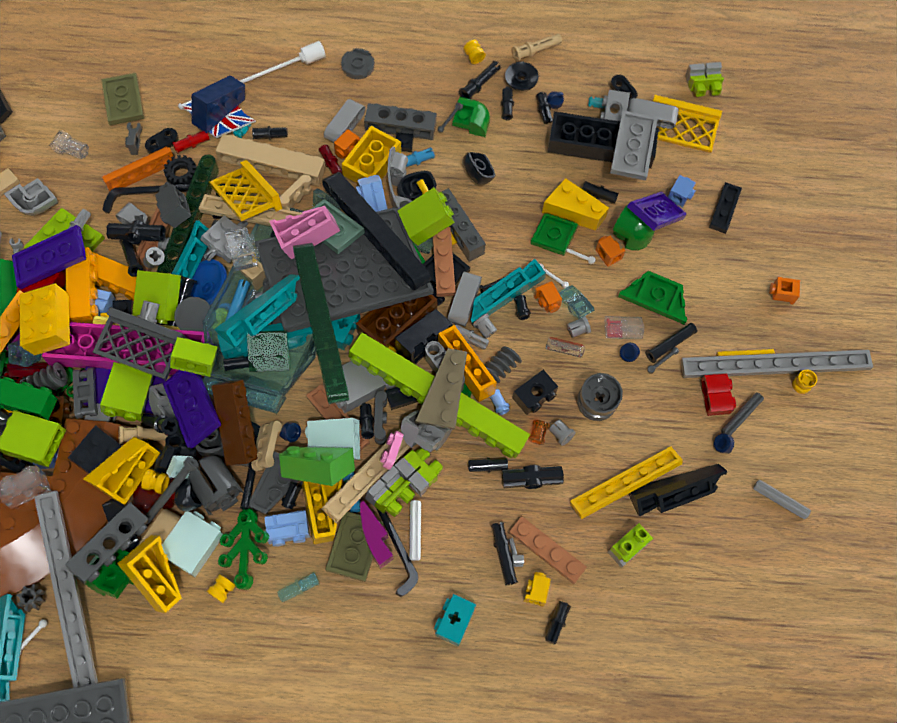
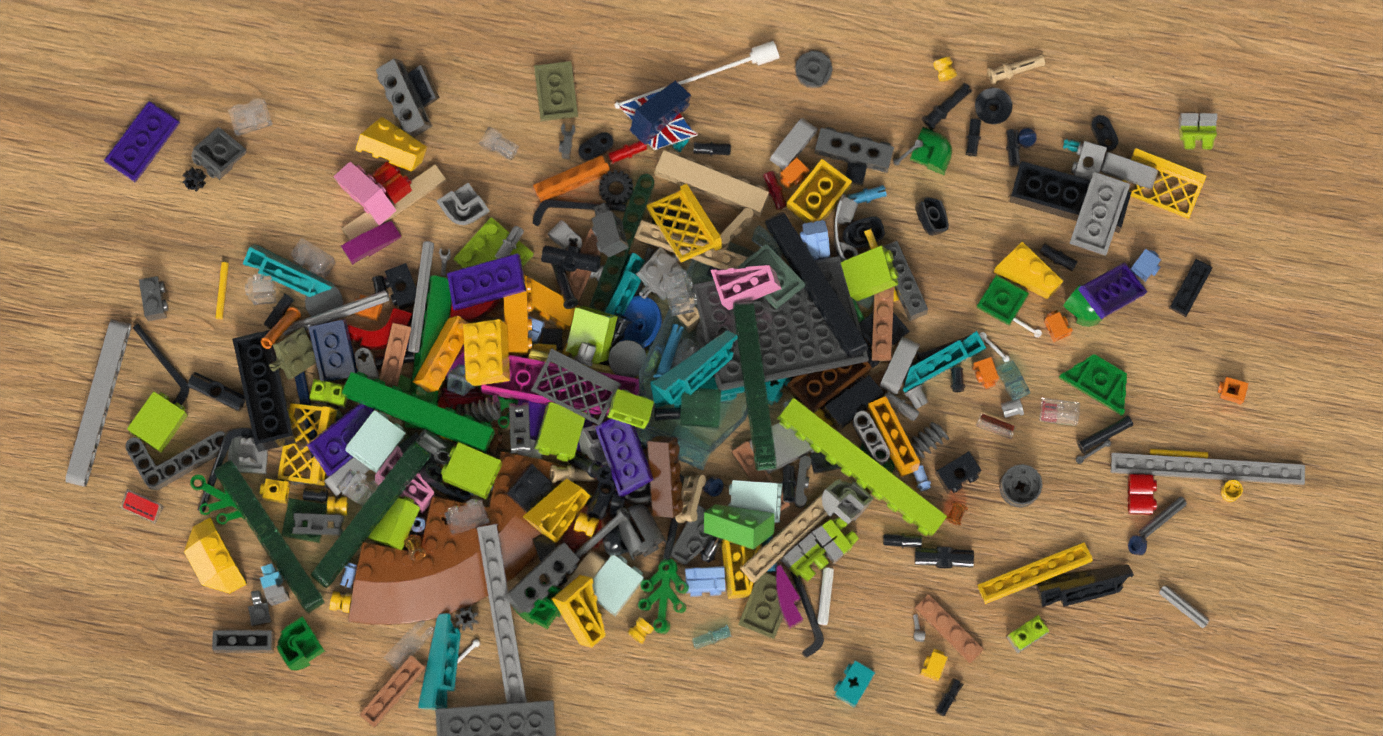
camera: 10 degrees right, 10 degrees up
(157, 254) = (591, 285): light grey bush -> none
(176, 466) = (609, 513): light aqua plate -> none
(389, 456) = (808, 524): bright pink plate -> none
(443, 398) = (866, 473): dark tan wing -> none
(502, 545) = (907, 627): black pin -> none
(564, 435) = (979, 516): light grey bush -> none
(629, 352) = (1060, 440): dark blue tile -> none

